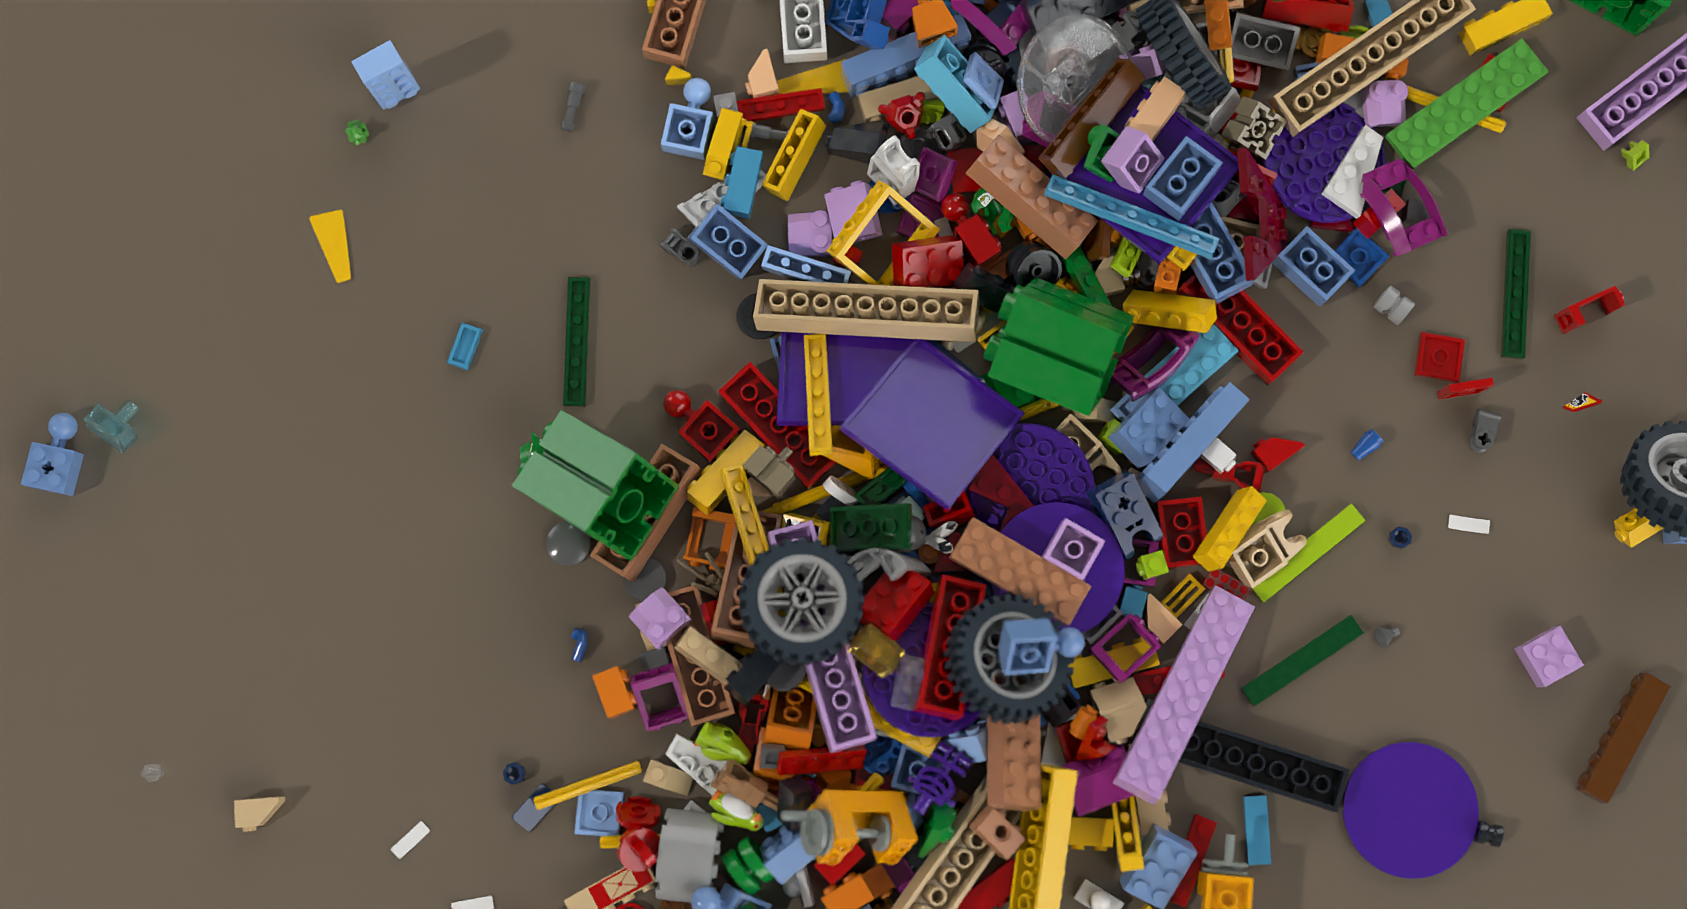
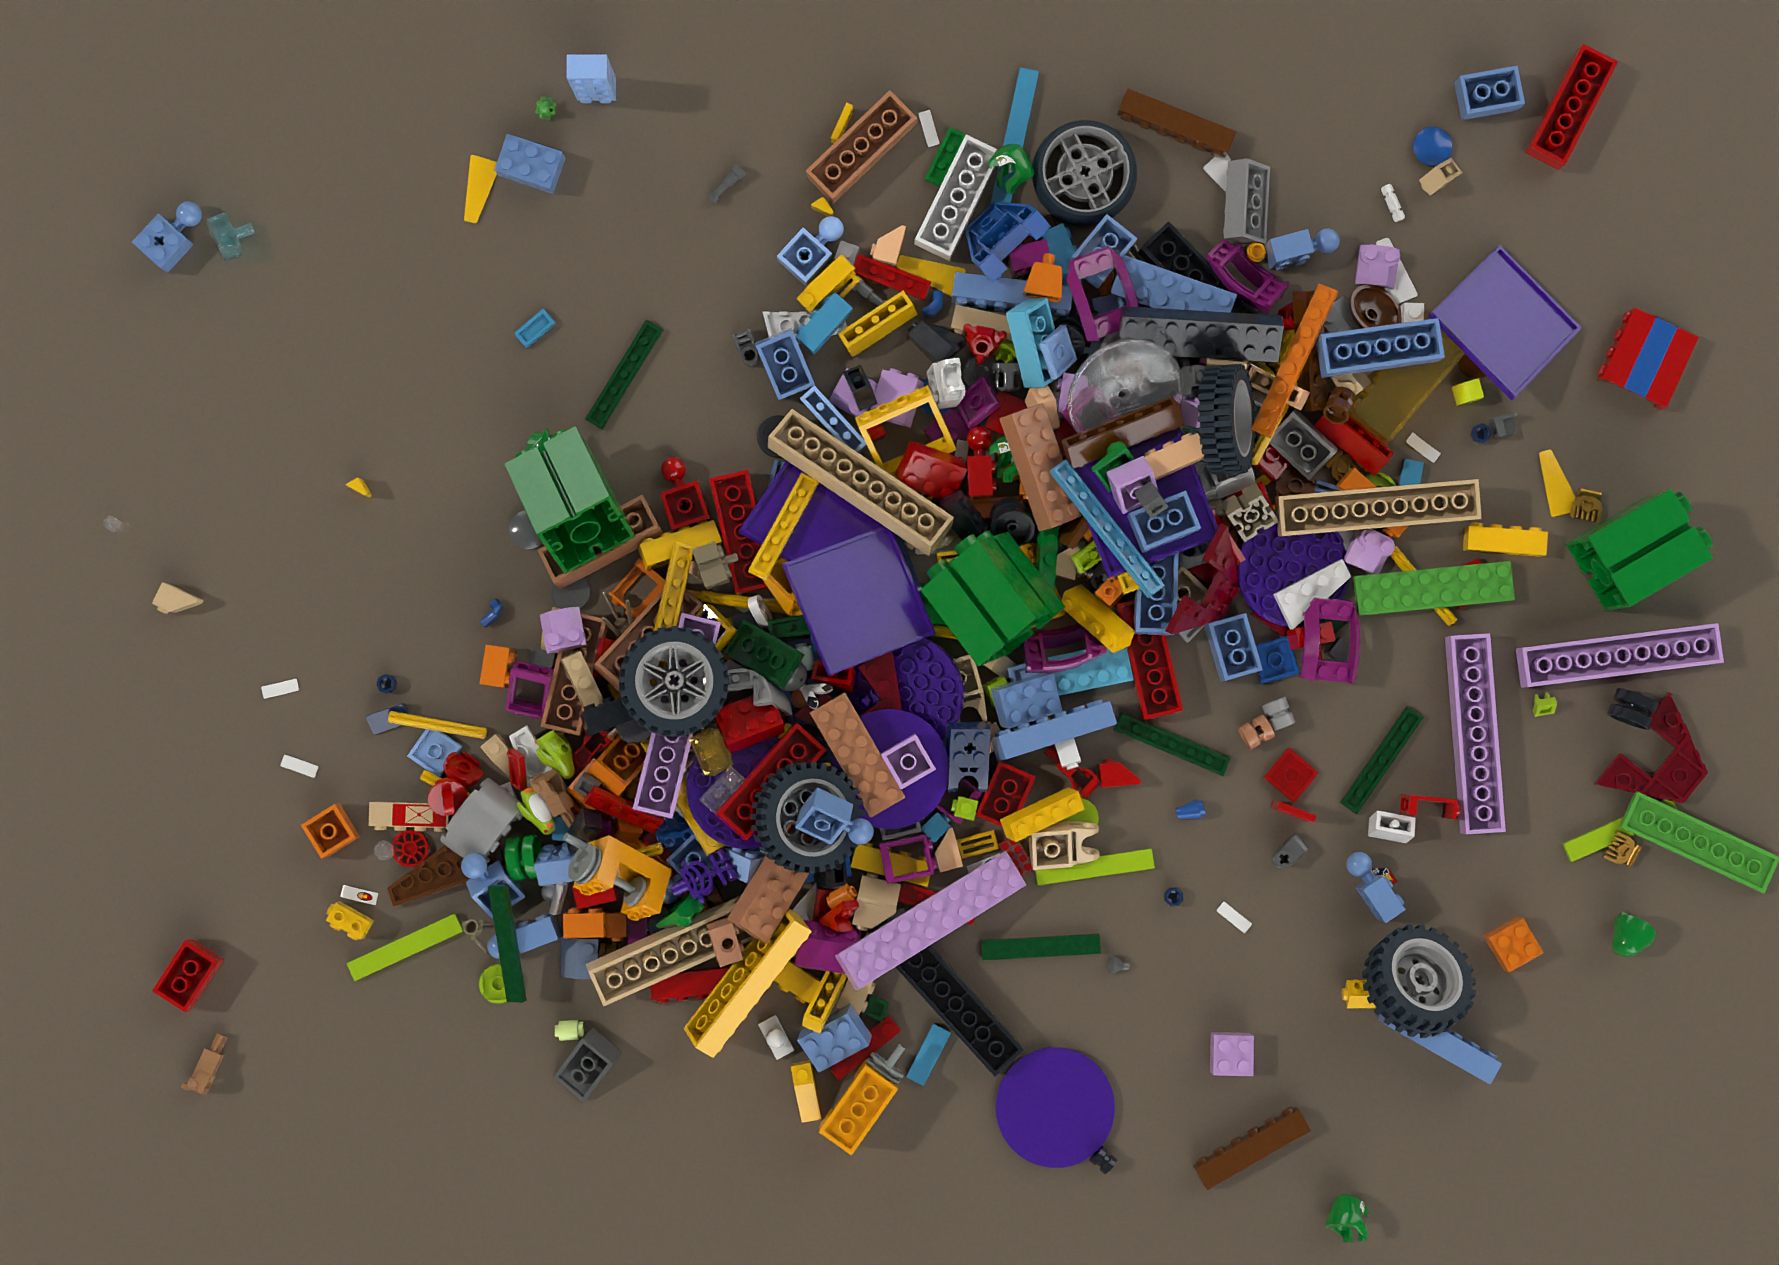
camera: 25 degrees right, 5 degrees up
(371, 192) = (530, 163): none -> medium blue brick
(378, 595) = (360, 486): none -> yellow slope
(692, 783) = (517, 769): none -> red tile
(813, 222) = (860, 387): none -> black slope
(1160, 161) = (1151, 499): none -> dark grey panel
(1180, 813) = (876, 1008): none -> dark green plate
(1275, 80) = (1293, 483): none -> reddish brown tile
(1310, 392) = (1172, 744): none -> dark green tile
(1381, 337) = (1251, 736): none -> nougat wheel
(1566, 349) = (1391, 827): none -> white brick
(1589, 216) = (1475, 733): none -> lavender brick
(1589, 419) = (1375, 889): none -> medium blue brick

